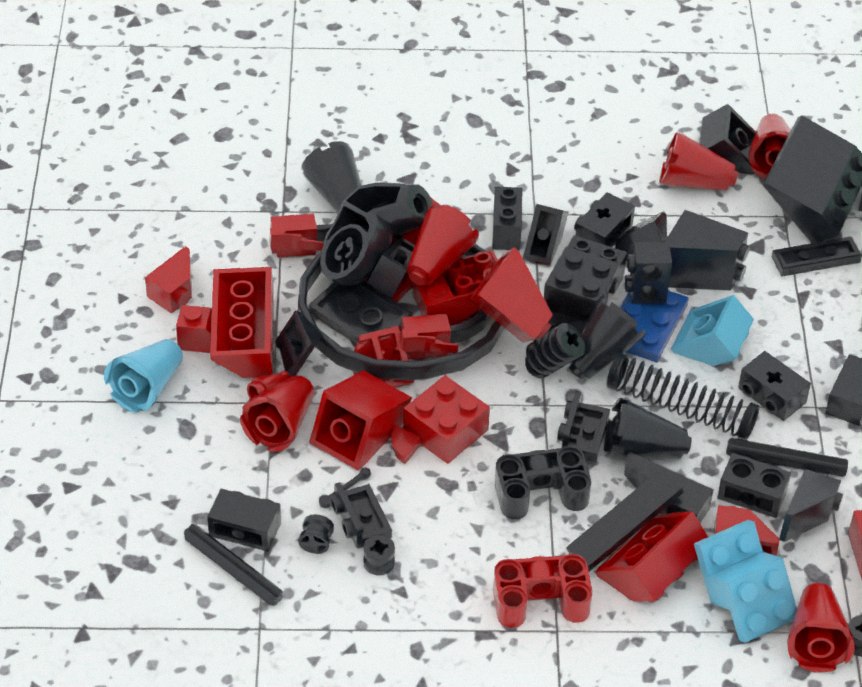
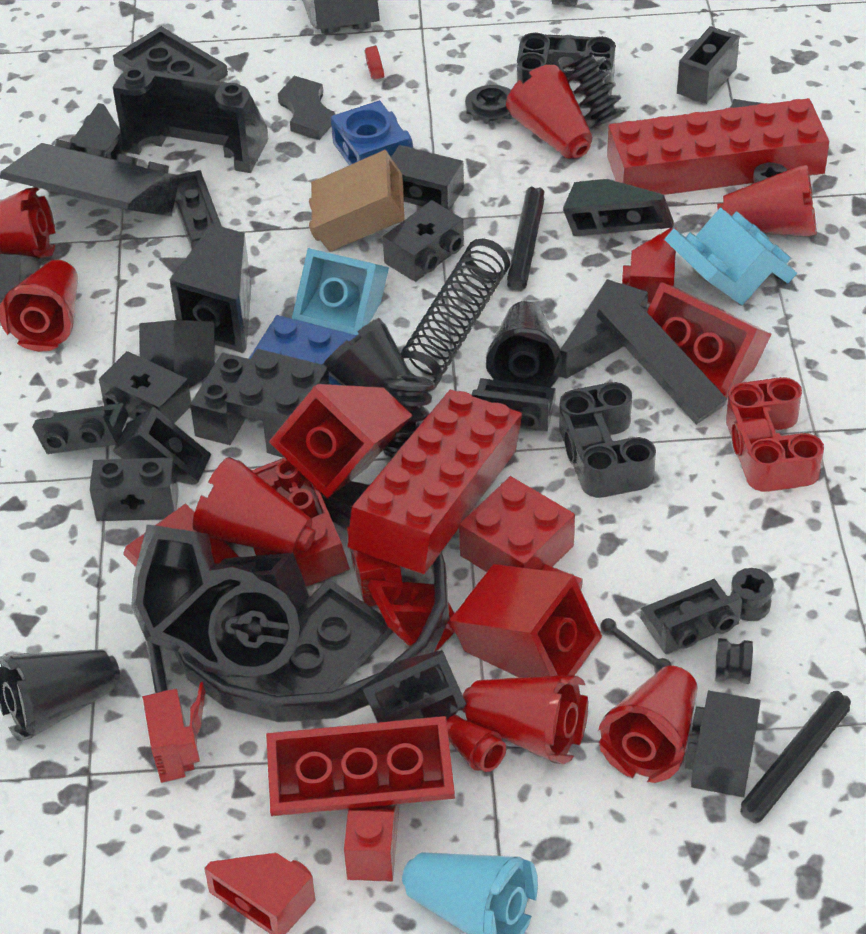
camera: 90 degrees left, 0 degrees up
(264, 474) = (651, 726): none -> red cone
(485, 360) = (434, 481): none -> red brick
(564, 190) = (81, 428): none -> black bracket
(649, 272) = (274, 314): black brick -> none
(754, 485) = (578, 258): black brick -> none
(809, 337) = (356, 201): none -> medium nougat brick

